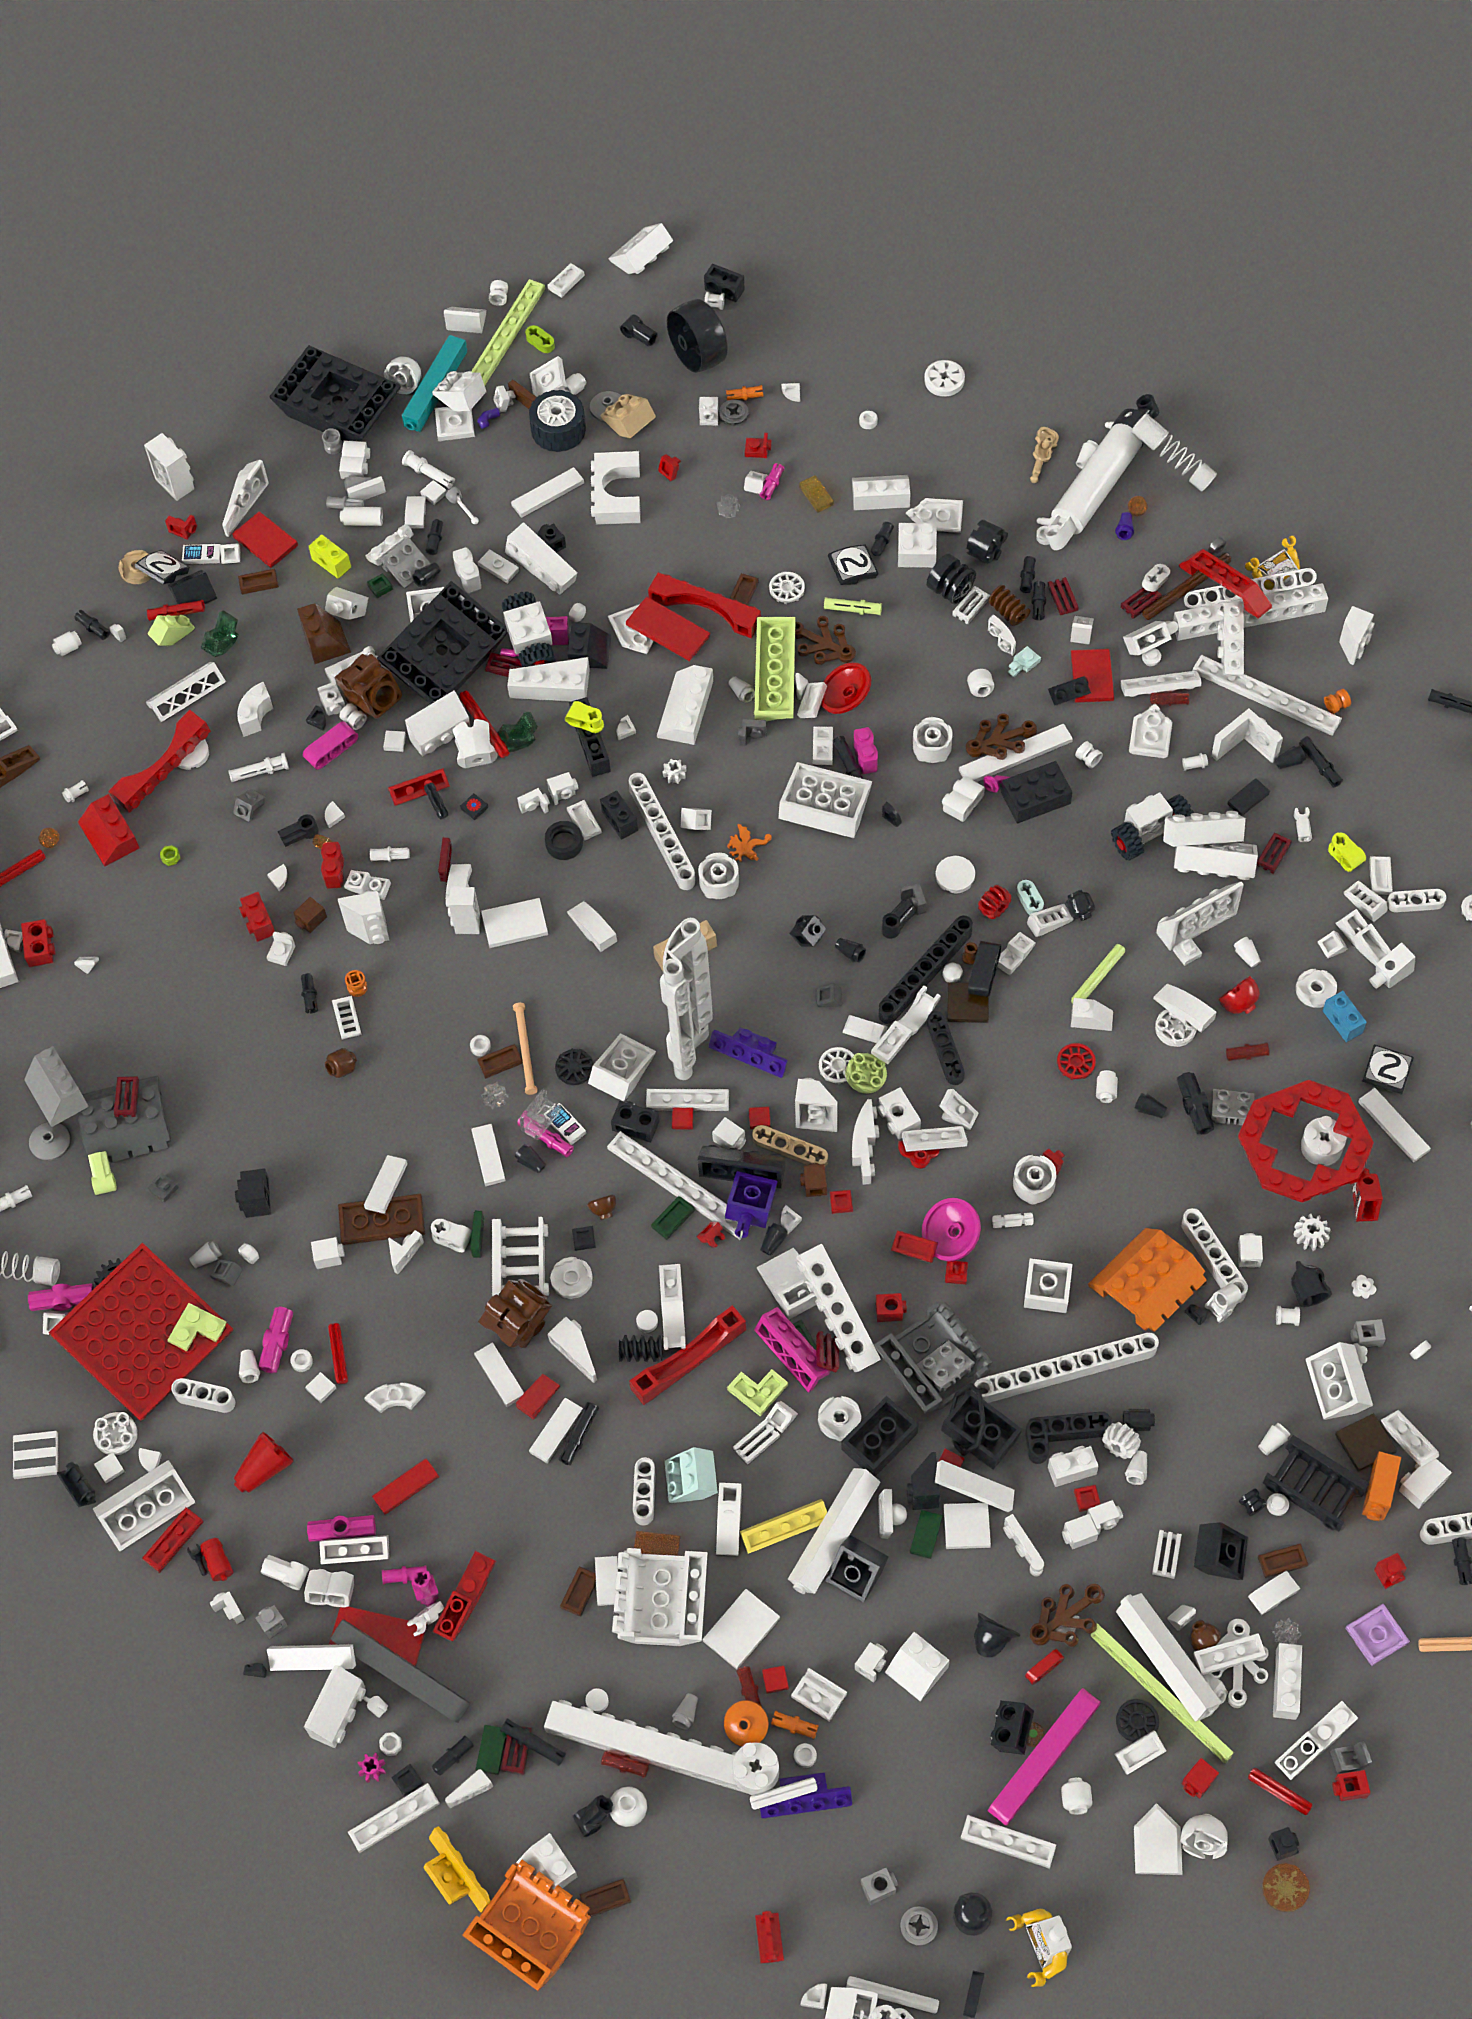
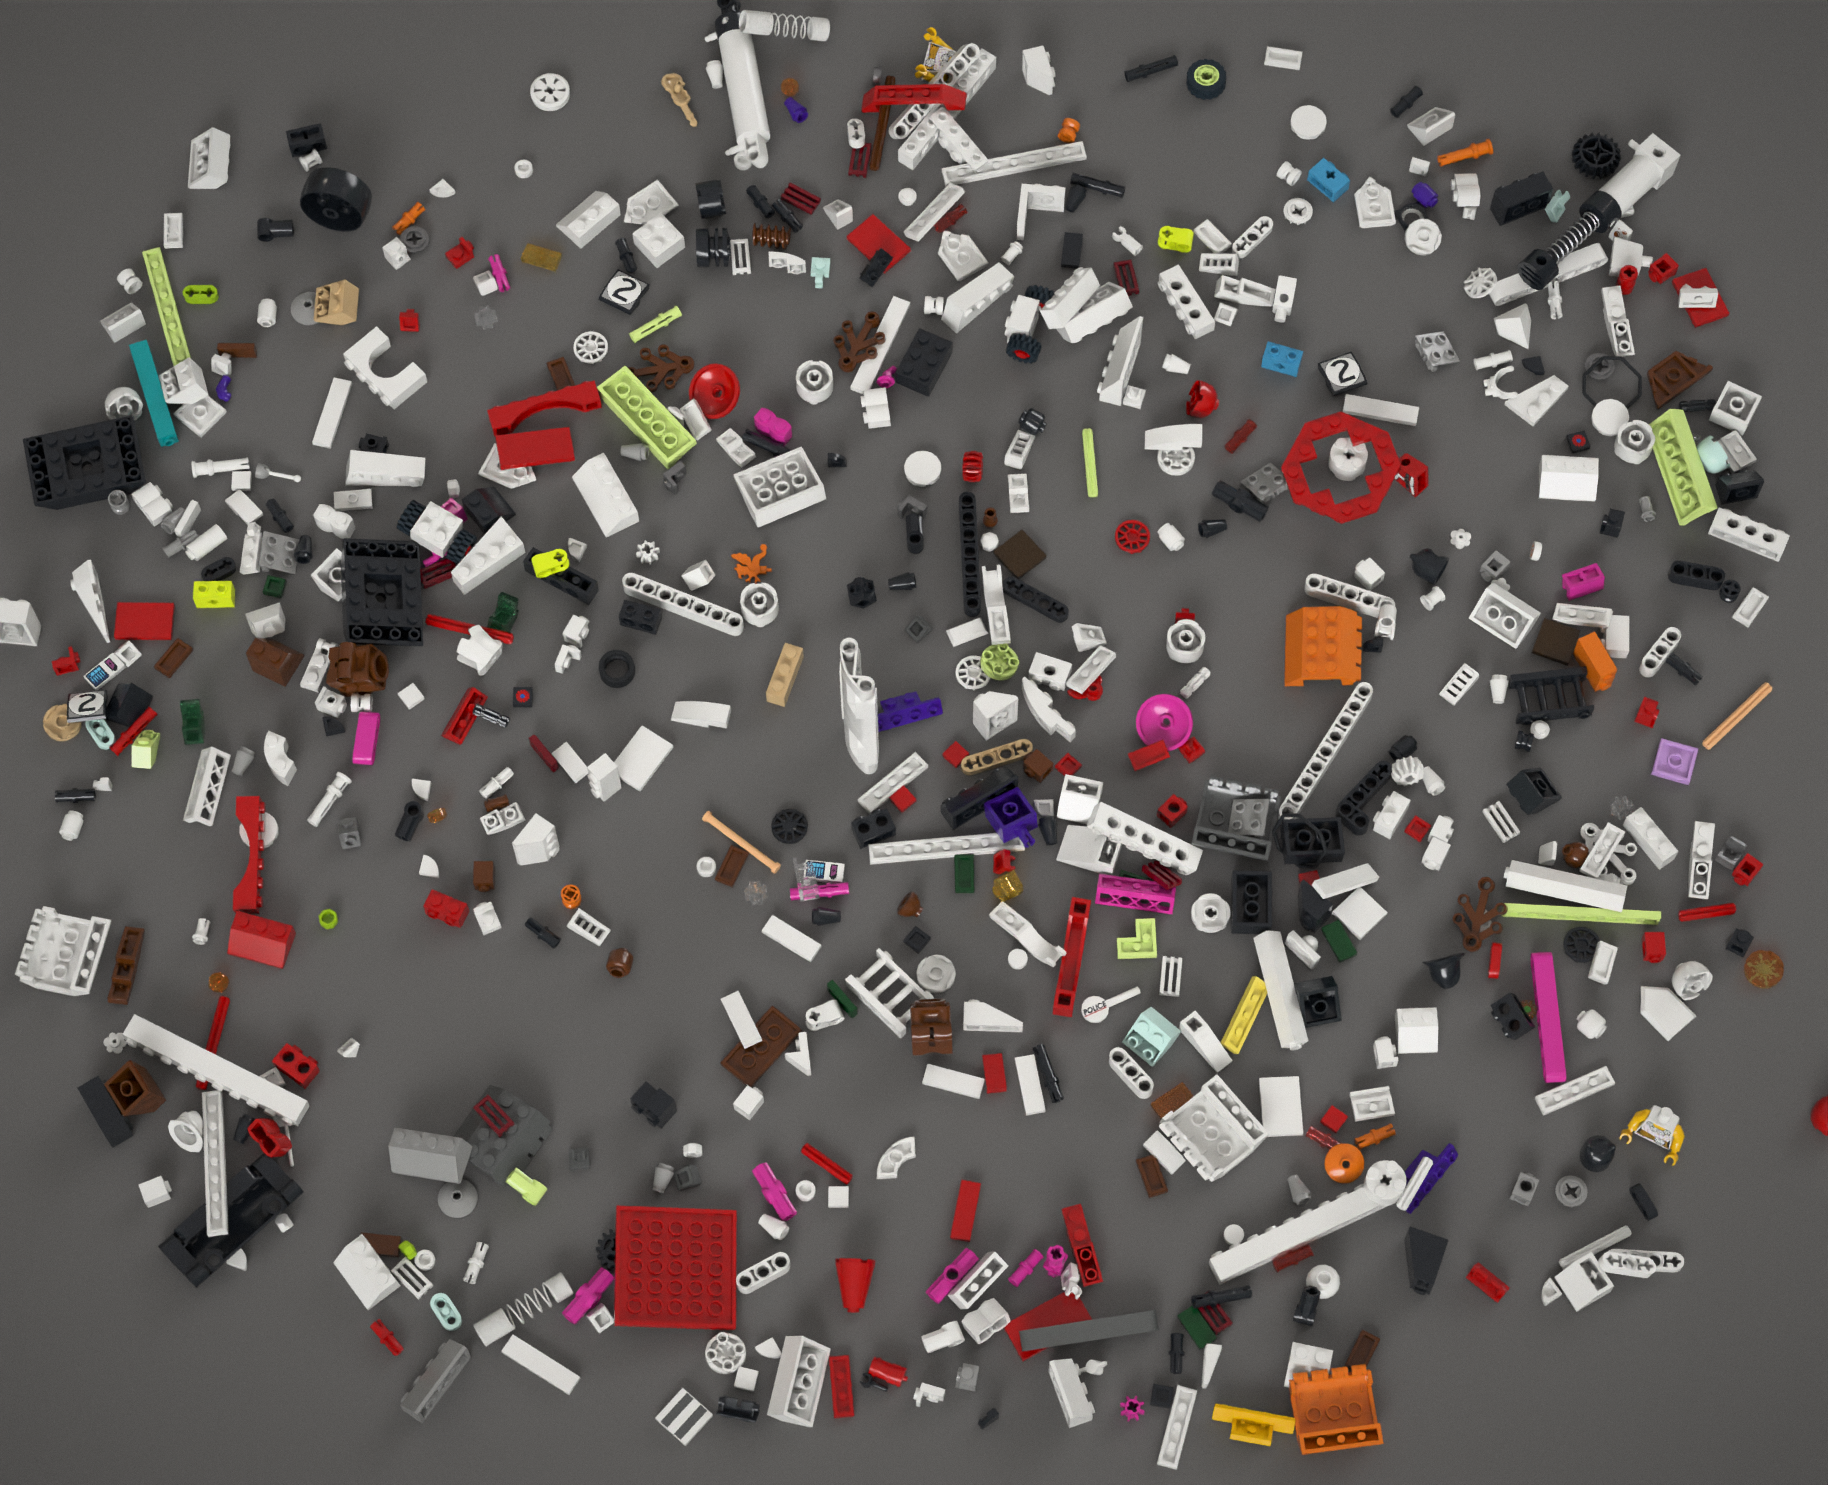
camera: 45 degrees left, 5 degrees up
(152, 594) = (101, 733): none -> light aqua plate
(195, 1321) = (707, 1230): yellowish green plate -> none
(228, 691) = (242, 760): none -> light grey cone
(311, 1657) = (1022, 1374): white tile -> none
(332, 865) = (463, 825): red brick -> none
(352, 543) = (218, 570): none -> black beam
(374, 869) = (496, 803): none -> reddish brown pin
(390, 1744) = (1128, 1383): white tile -> none
(435, 723) = (437, 657): white slope -> none
(548, 377) = (244, 322): white tile -> none
(557, 420) = (286, 349): black wheel -> none
(584, 820) = (613, 640): white tile -> none
(621, 1067) = (825, 798): white slope -> none
(641, 1348) = (1034, 978): black piece -> none
(669, 1415) = (1096, 1008): none -> white piece
(694, 1255) = (1007, 886): none -> clear yellow brick
(728, 1867) = (1424, 1258): none -> black slope
(729, 1135) = (949, 783): white brick -> none
(781, 1416) = (1170, 945): white slope -> none
(805, 1755) = (1399, 1150): white tile -> none
(821, 1228) = (1078, 798): none -> white slope
(980, 682) = (806, 311): white head -> none
(984, 969) = (1012, 520): black beam -> none
(1024, 1545) = (1409, 893): white plate -> none
(1033, 896) = (991, 444): light aqua beam -> none
(1048, 1285) = (1263, 707): white brick -> none
(1091, 1015) = (1112, 496): white slope -> none
(1130, 773) = (976, 297): none -> white wedge
(1149, 636) = (895, 182): white brick -> none
(1240, 1400) = (1469, 672): none -> white slope
(1274, 1592) = (1589, 789): white slope -> none
(1282, 1560) = (1575, 763): reddish brown tile -> none
(1303, 936) = (1176, 278): none -> white brick
(1311, 1224) = (1401, 523): white gear -> none
(1315, 998) = (1240, 363): white tile -> none
(1439, 1410) = (1583, 581): none -> dark pink hinge

